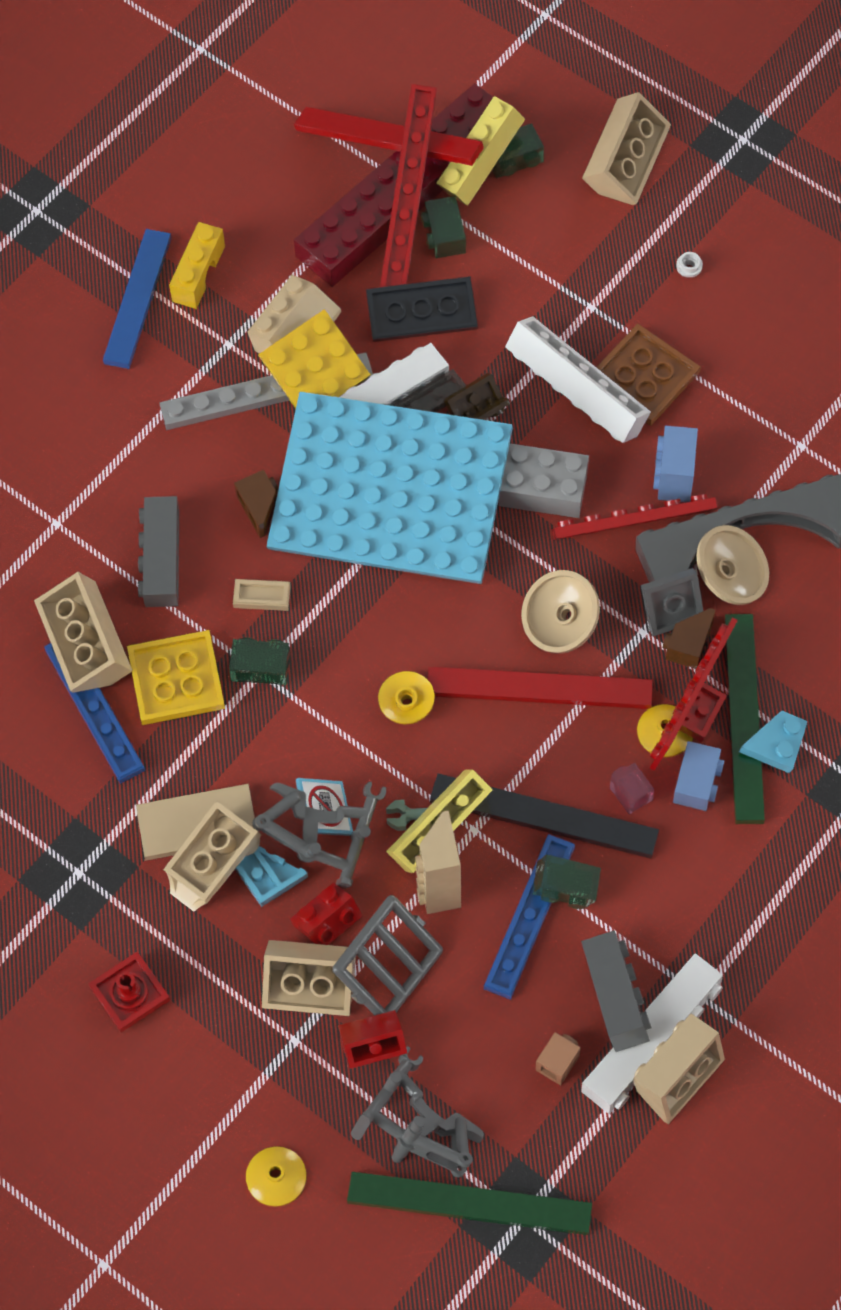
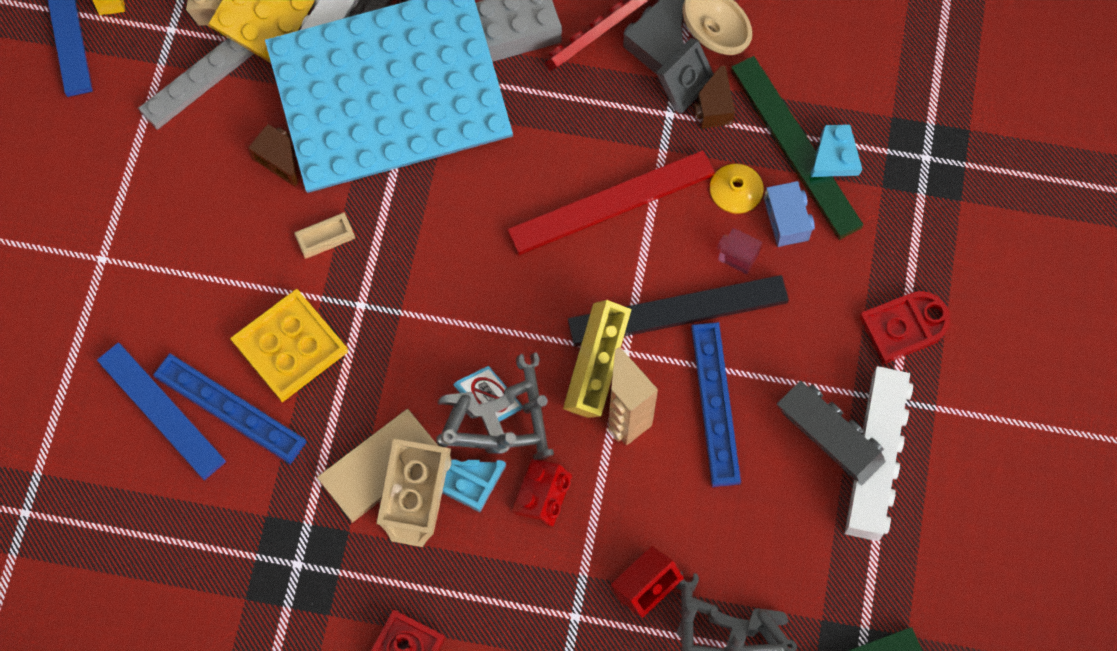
camera: 30 degrees left, 5 degrees up
(34, 682) = (161, 411): none -> blue tile
(82, 634) = (184, 347): tan slope -> none
(160, 552) = (213, 239): dark grey brick -> none
(259, 661) = (357, 294): clear green brick -> none
(303, 979) = (559, 554): tan slope -> none
(357, 948) = (597, 509): dark grey bar -> none
(406, 686) = (504, 253): yellow dish -> none
(407, 814) = (561, 366): sand green bar -> none
(547, 607) = (580, 123): tan dish -> none
(558, 1057) = (812, 515): nougat brick -> none
(566, 881) = (733, 358): clear green brick -> none
(679, 1067) = (919, 470): tan slope -> none
(699, 703) = (756, 148): red bracket -> none
(749, 932) = (904, 326): none -> red tile

